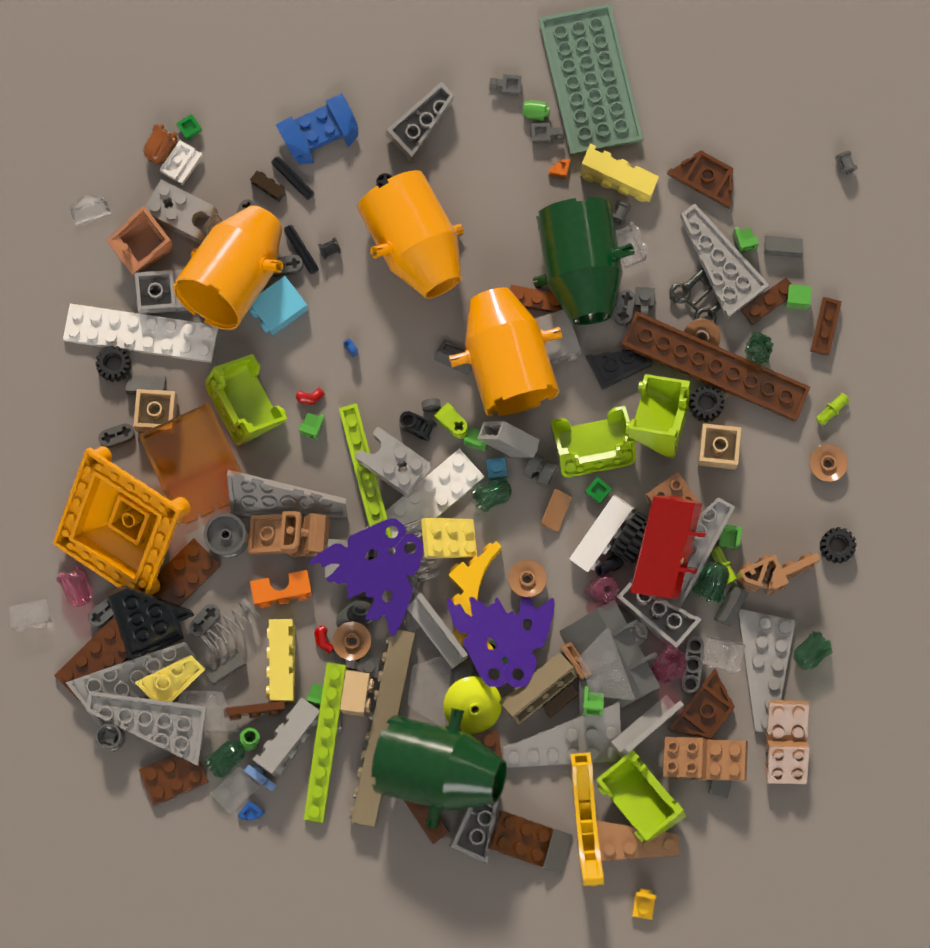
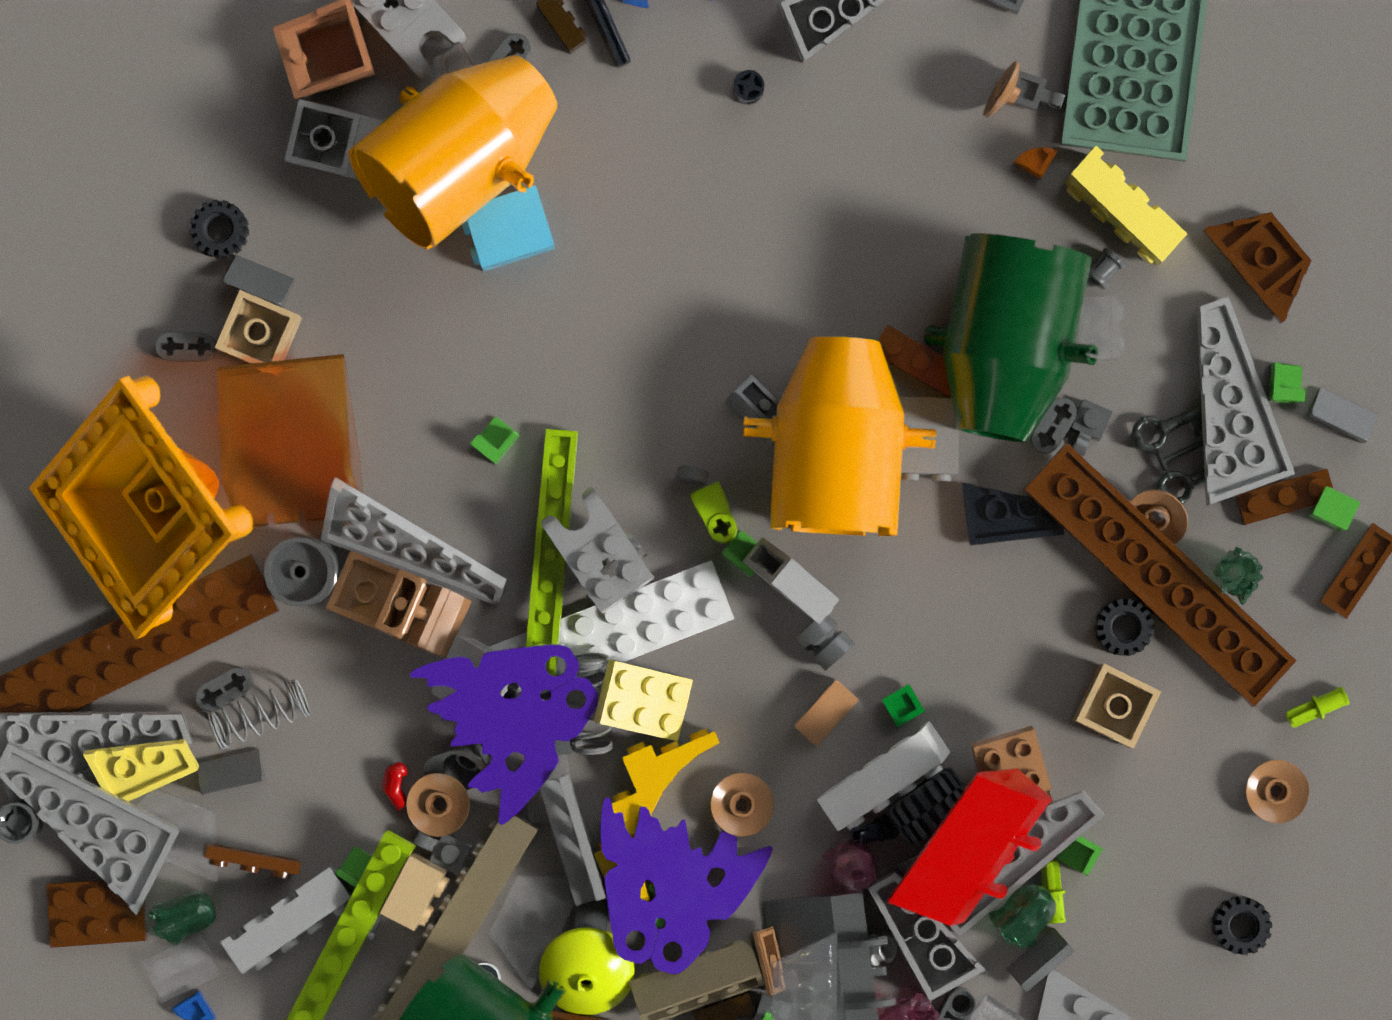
camera: 20 degrees right, 10 degrees up
(75, 587) = (43, 567): clear pink piece -> none
(107, 616) = (78, 627): dark grey beam -> none
(141, 333) = (278, 193): white plate -> none
(145, 620) = (131, 665): black wing -> none
(242, 400) = (402, 363): lime windscreen -> none
(249, 733) = (239, 904): bright green brick -> none
(256, 773) = (225, 965): medium blue plate -> none
(281, 660) = (319, 798): light yellow wedge -> none
(289, 270) = (548, 174): dark grey beam -> none
(298, 588) = (330, 682): orange arch -> none
(301, 249) = (577, 147): black axle -> none
(308, 398) = (506, 396): red arm -> none
(329, 248) = (622, 162): black bush -> none
(351, 348) = (599, 335): blue tile -> none
(413, 233) = (760, 197): light orange piece -> none
(418, 426) = (660, 502): black piece -> none
(492, 493) = (736, 651): clear green piece -> none
(496, 468) = (758, 611): dark azure plate -> none
(529, 135) = (1004, 91): none -> medium nougat dish
(536, 110) = (1033, 49): bright green brick -> none
(594, 445) = (924, 629): lime windscreen -> none
(660, 414) = (1042, 625): lime windscreen -> none
(751, 576) = (1119, 930): medium nougat piece -> none

